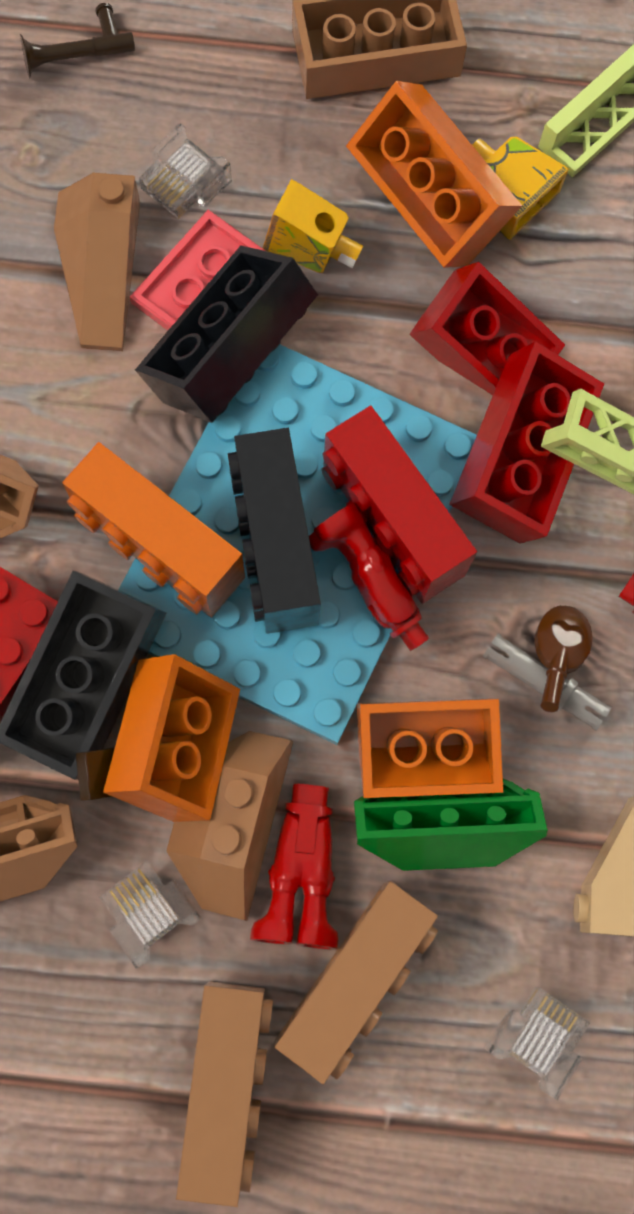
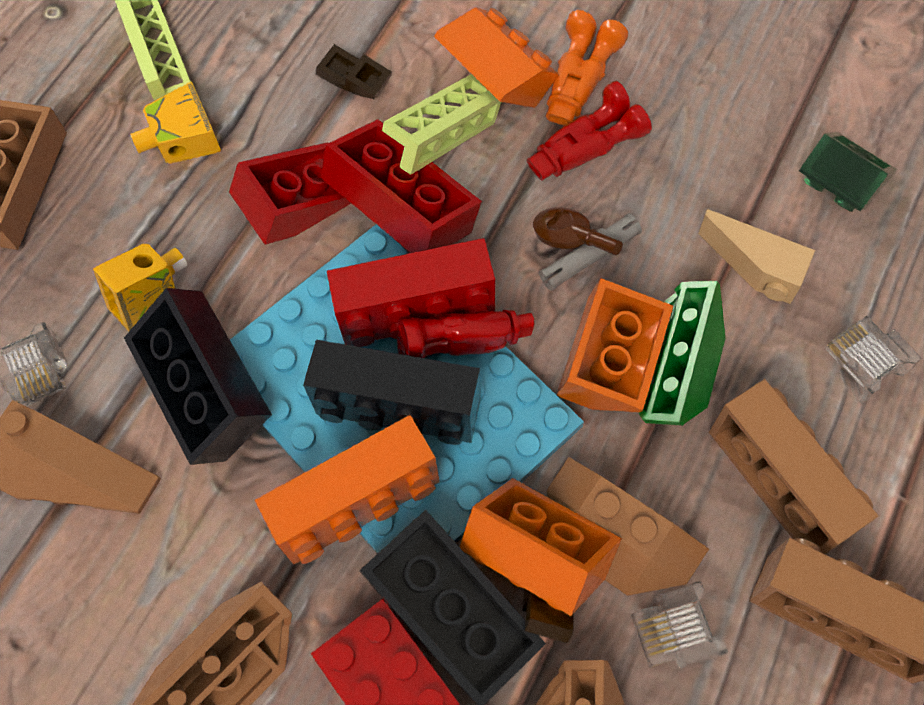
camera: 60 degrees left, 10 degrees down
(188, 269) = (121, 395): coral tile -> none
(301, 861) = (675, 486): red piece -> none
(432, 174) = (142, 173): orange brick -> none

